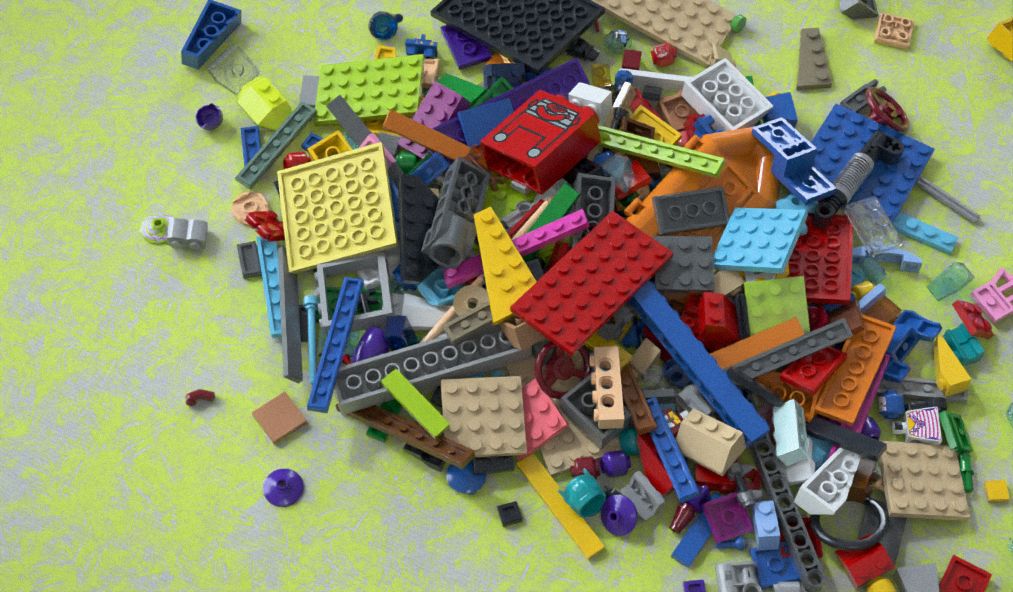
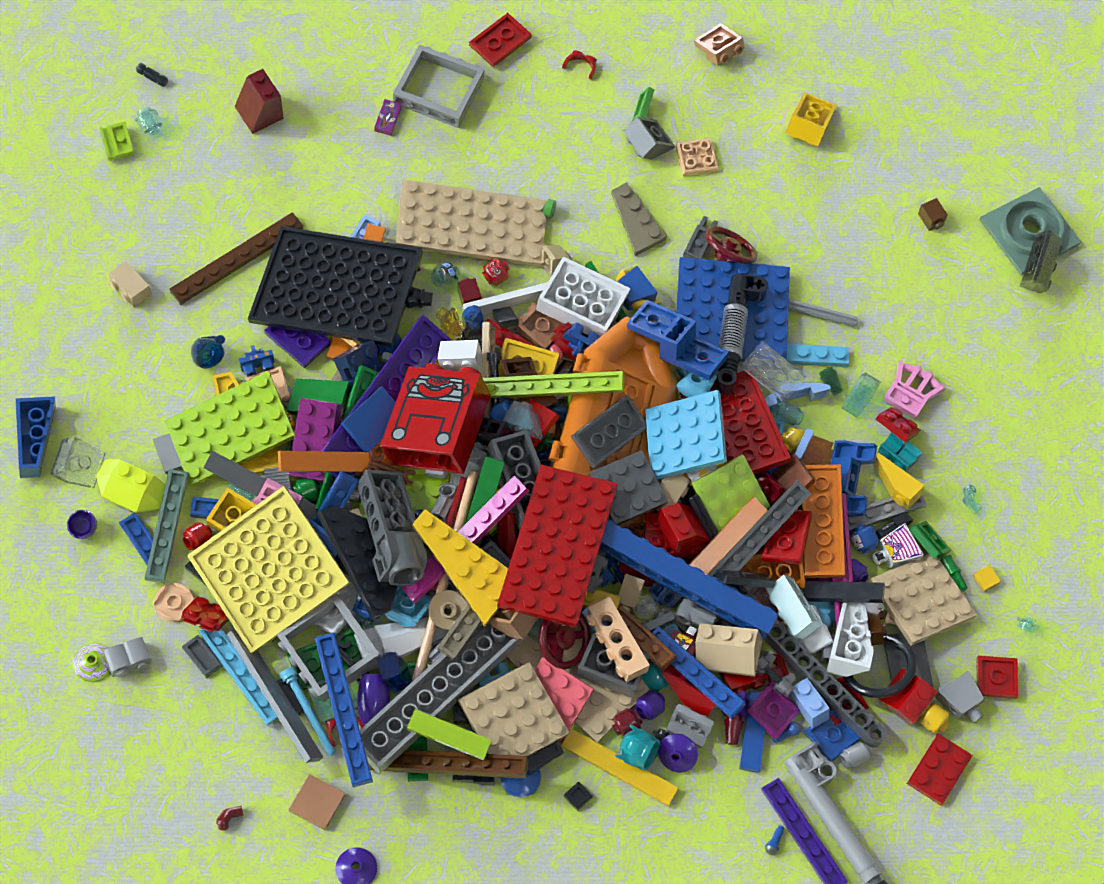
camera: 30 degrees left, 5 degrees up
(928, 255) = (830, 377): none -> clear green cone

